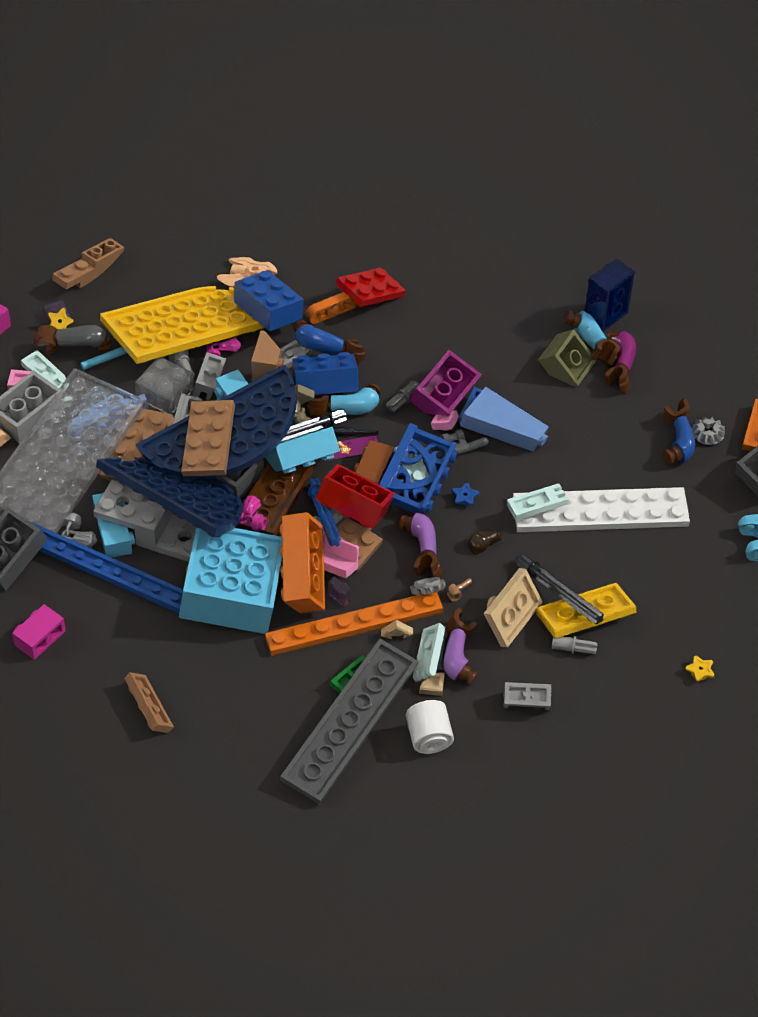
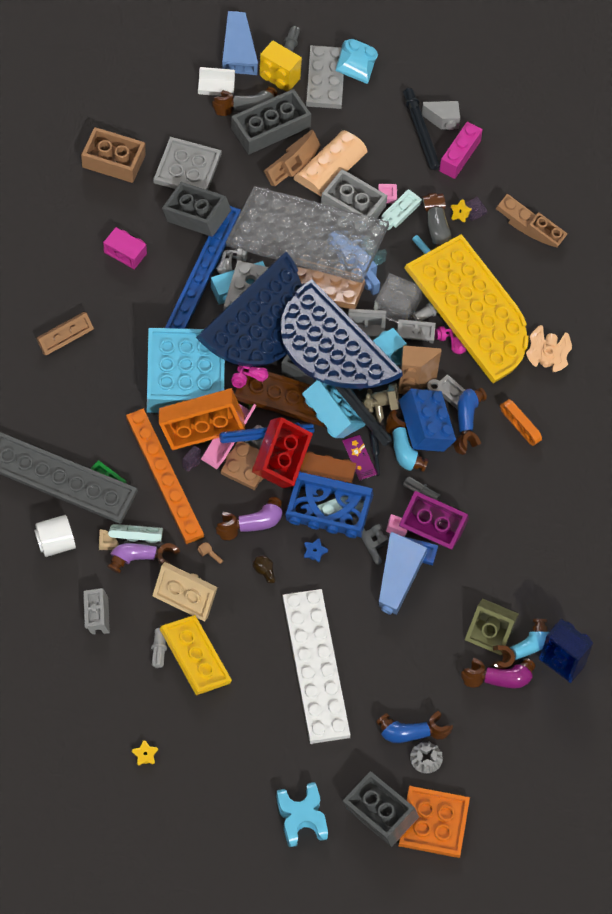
camera: 80 degrees right, 10 degrees up
(208, 438) = (316, 326): medium nougat plate -> none
(268, 300) = (504, 362): blue brick -> none
(370, 287) = (547, 449): red plate -> none
(396, 628) = (156, 502): tan tile -> none
(427, 586) = (204, 524): light grey gear -> none
(537, 501) = (305, 603): light aqua hinge -> none
(560, 589) = (202, 636): black axle -> none

